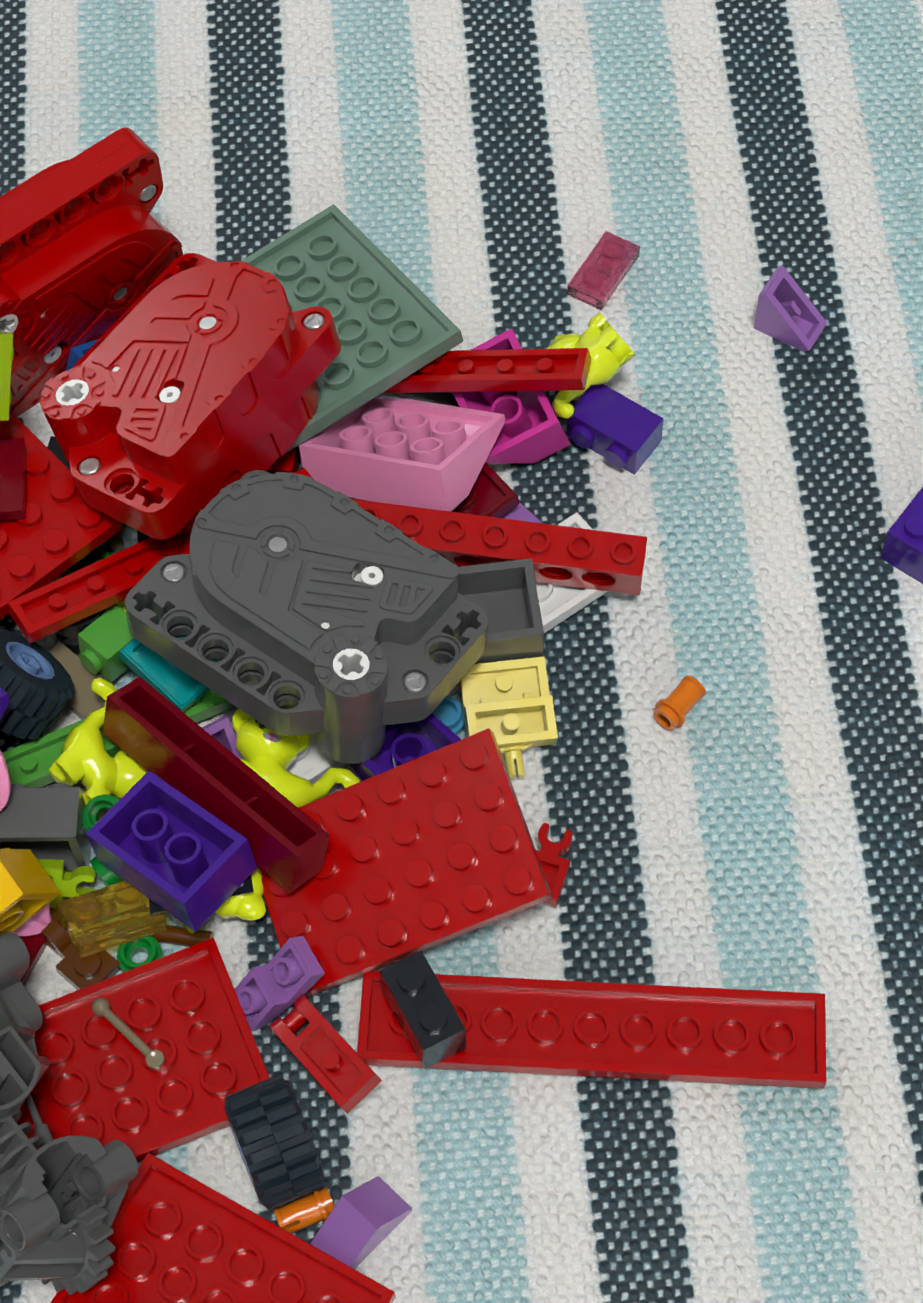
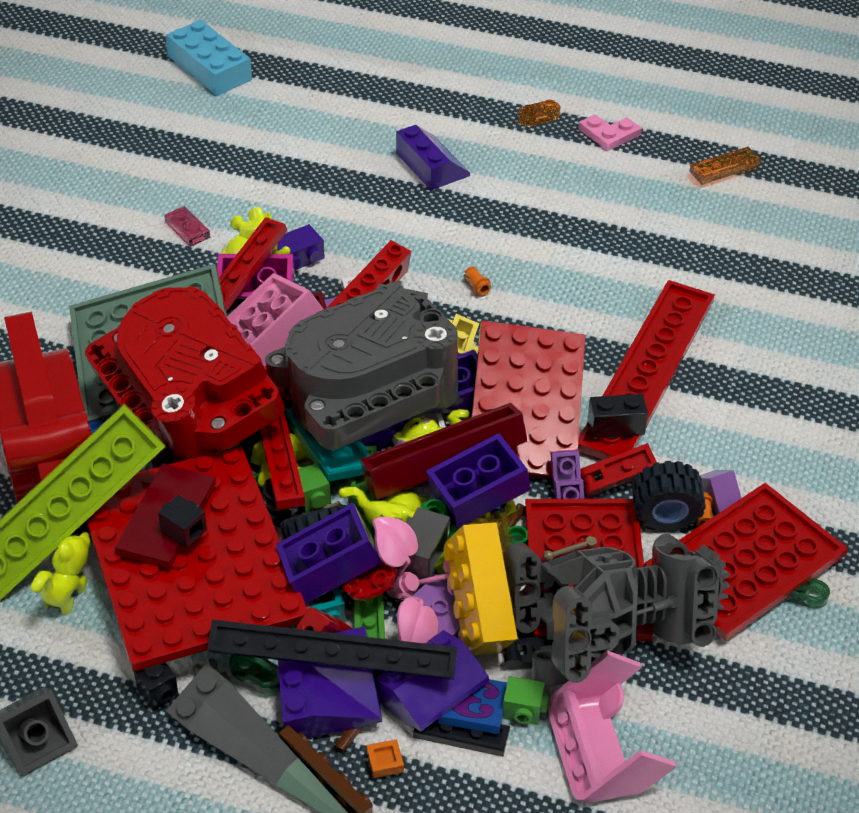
camera: 70 degrees left, 15 degrees down
(787, 312) = (265, 168): medium lavender slope -> none

